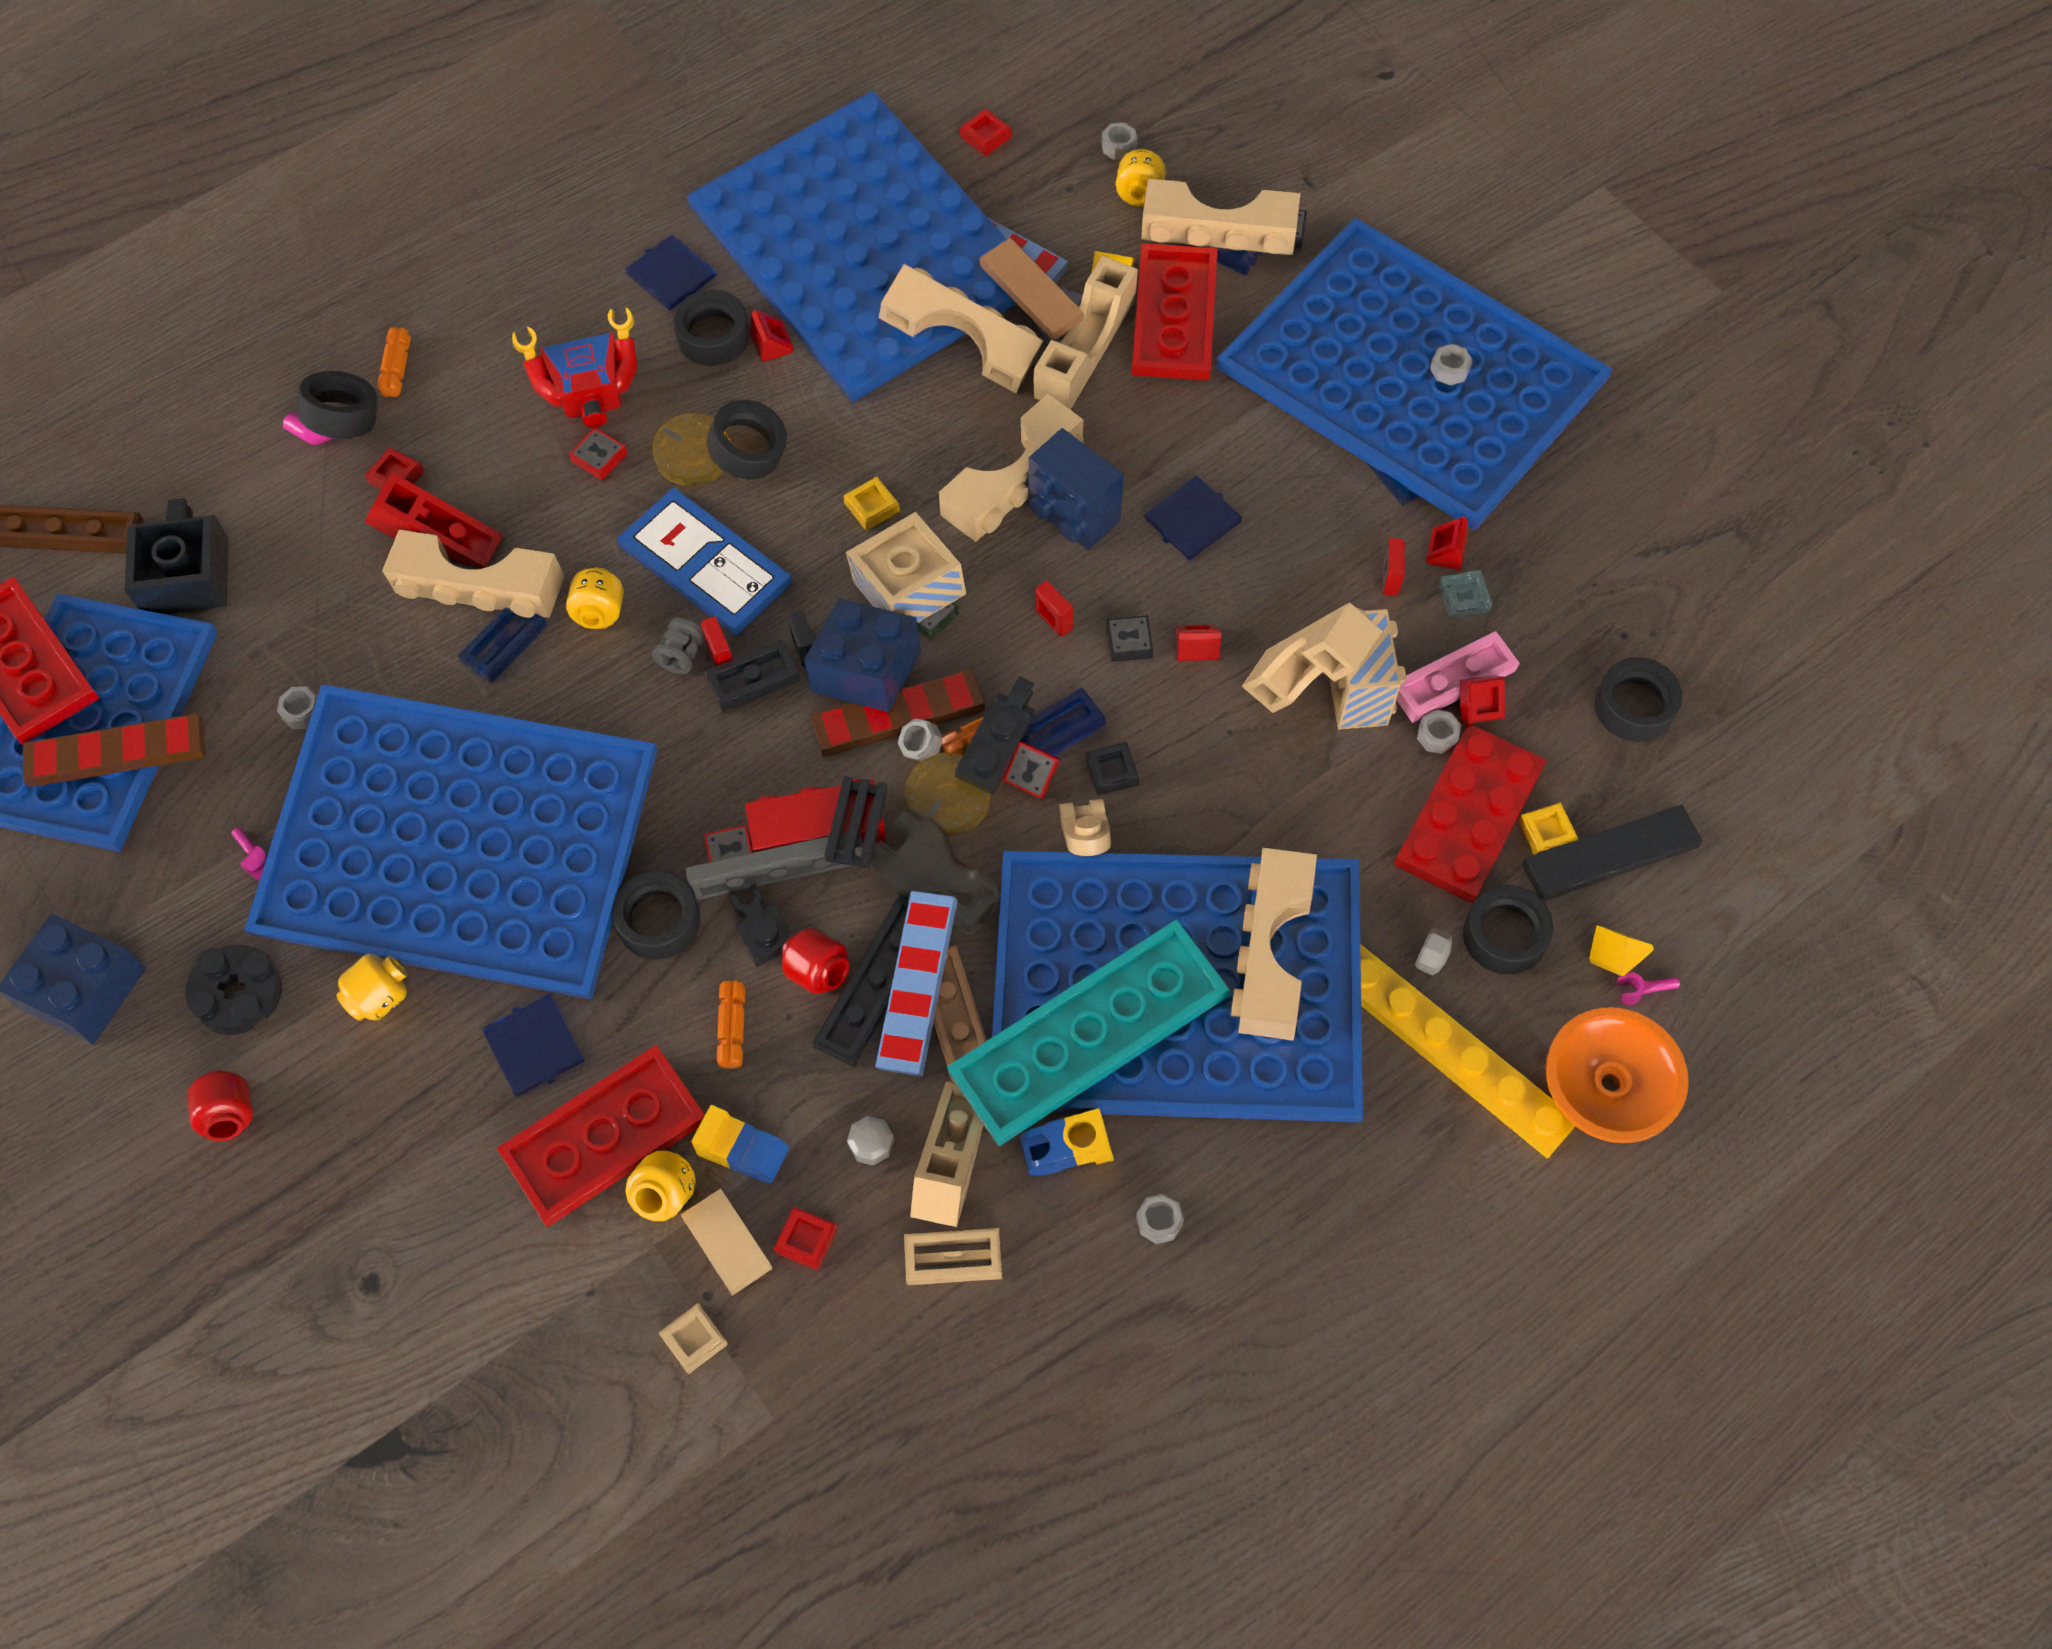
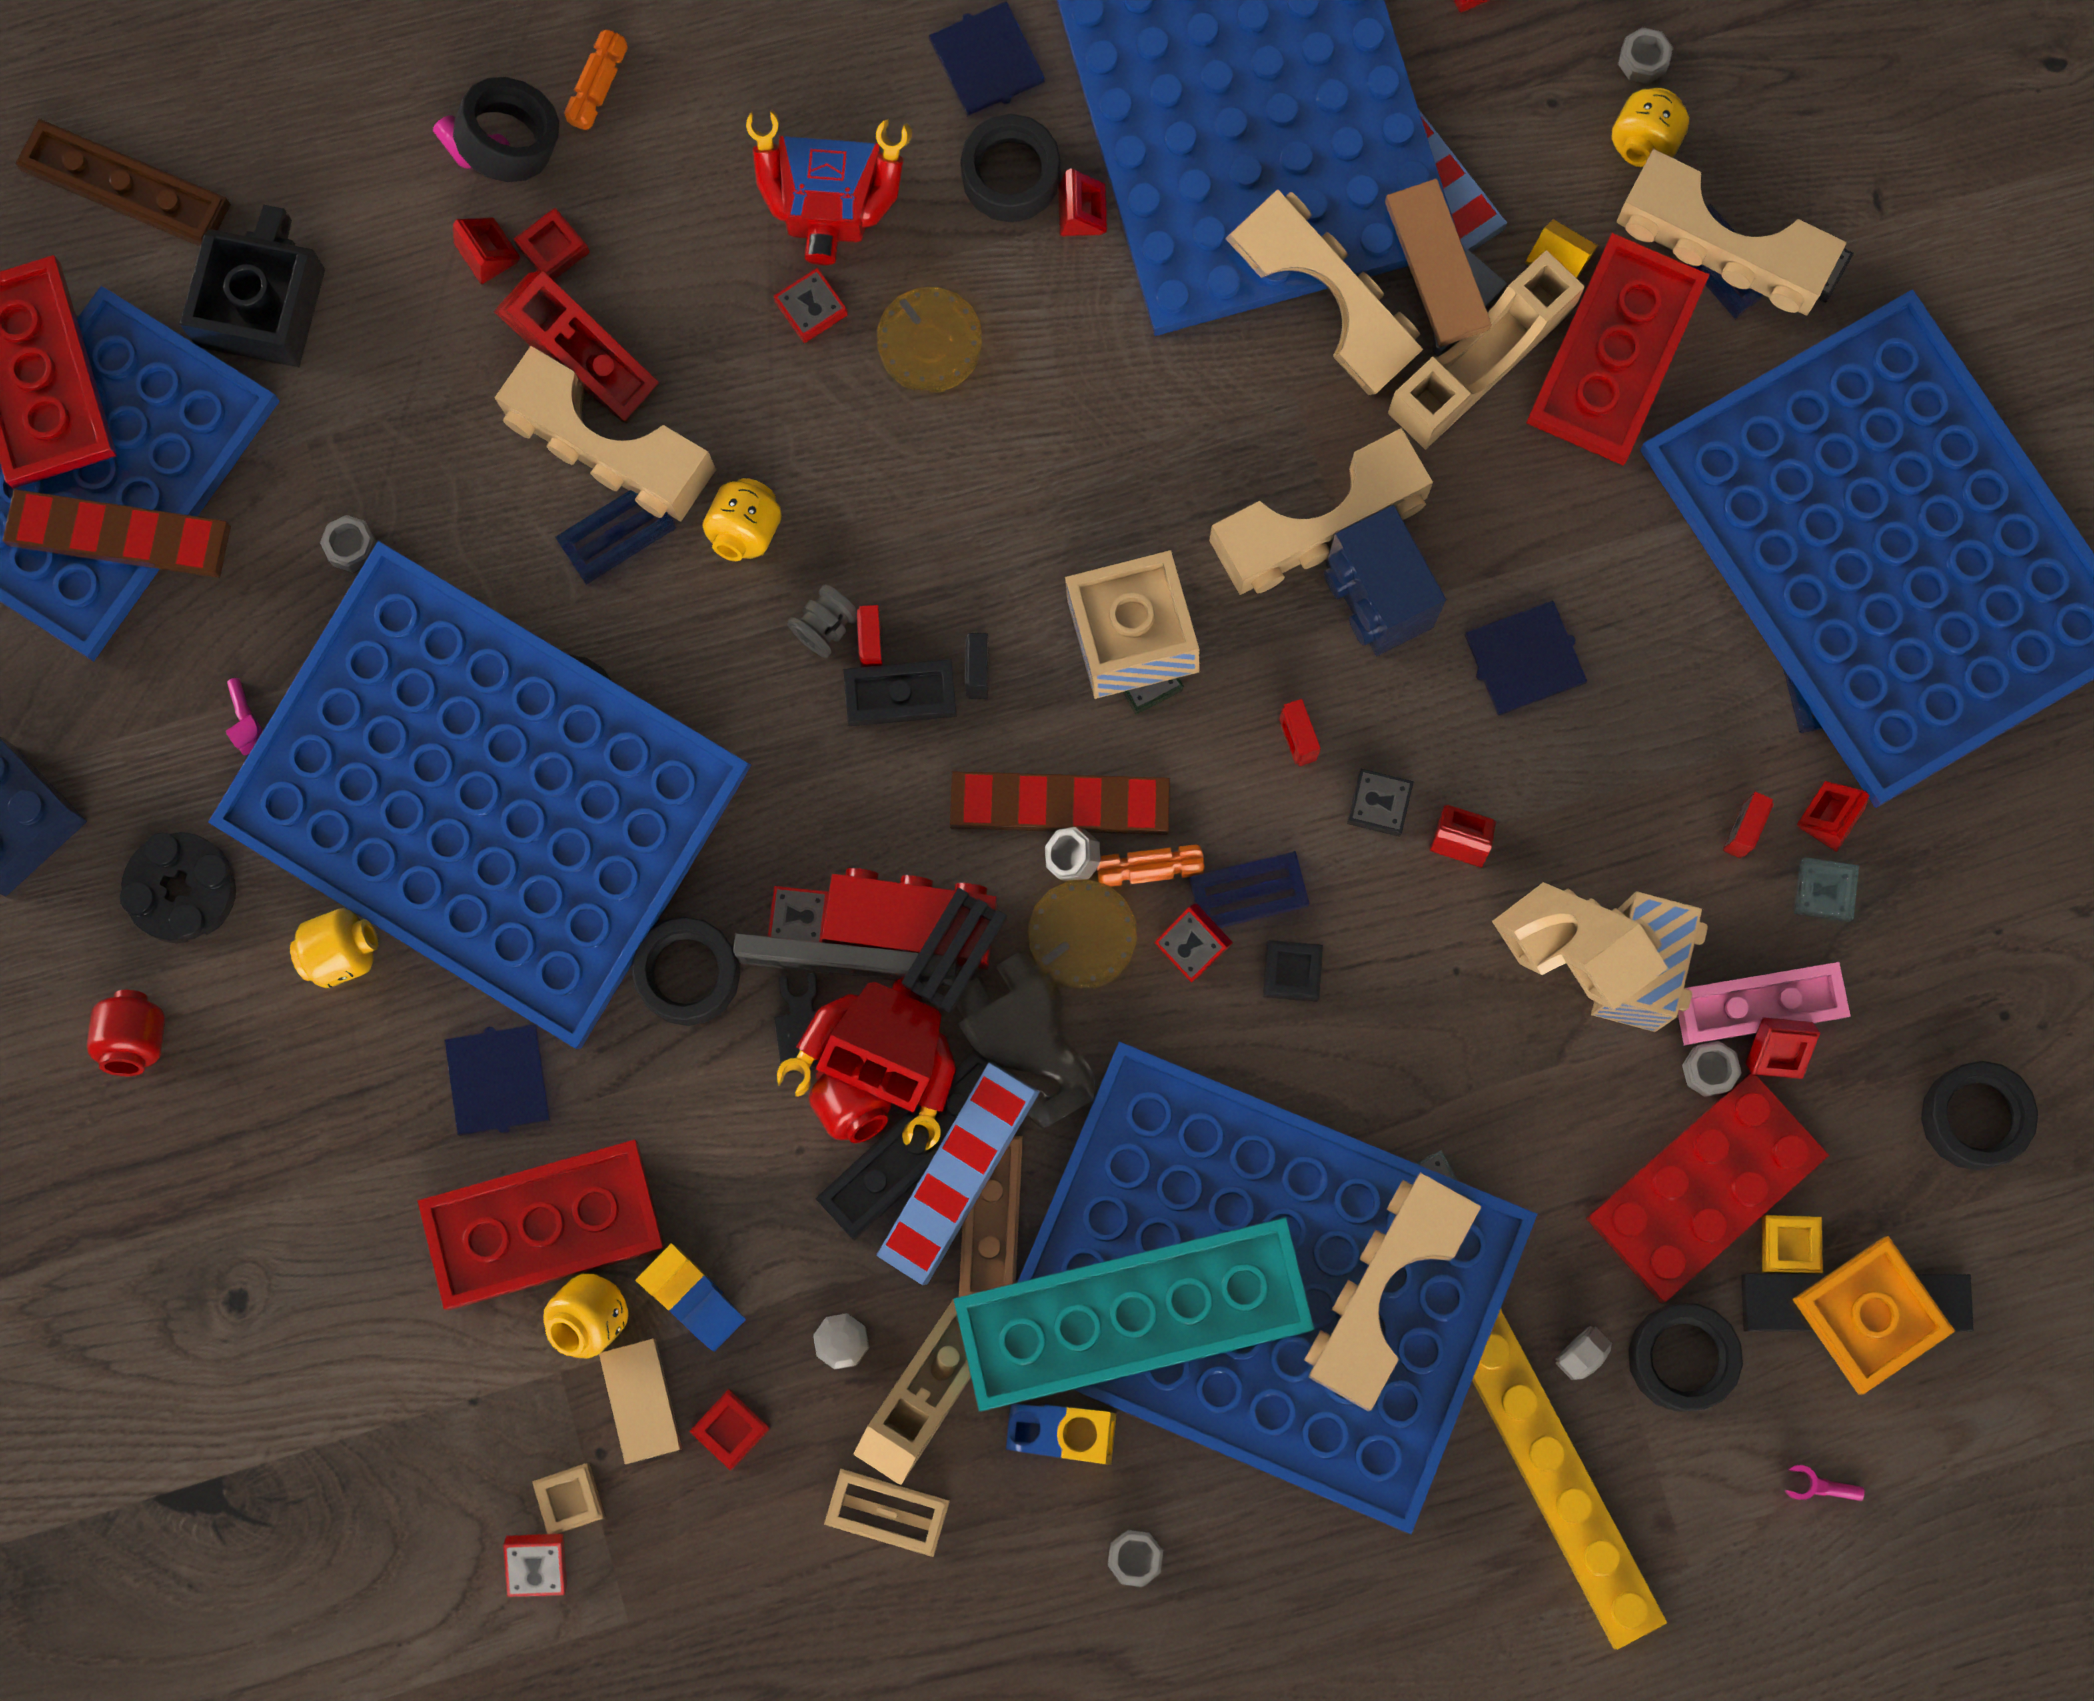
camera: 20 degrees right, 15 degrees up
(343, 488) = (484, 247): none -> red slope
(682, 1397) = (535, 1565): none -> tile
(704, 561) = (894, 507): tile -> none
(730, 1024) = (729, 1140): orange axle -> none
(759, 418) = (1026, 330): black tyre -> none
(828, 908) = (883, 1046): none -> red torso
(863, 655) = (1041, 720): dark blue brick -> none
(871, 503) = (1128, 496): yellow tile -> none
(997, 738) = (1164, 891): black hinge -> none
(1085, 828) = (1226, 1060): tan plate -> none
(1451, 364) = (1941, 567): light grey tile -> none
(1617, 950) = (1806, 1433): yellow slope -> none
(1628, 852) = (1873, 1315): none -> light orange tile
(1631, 1054) = (1770, 1600): orange dish -> none

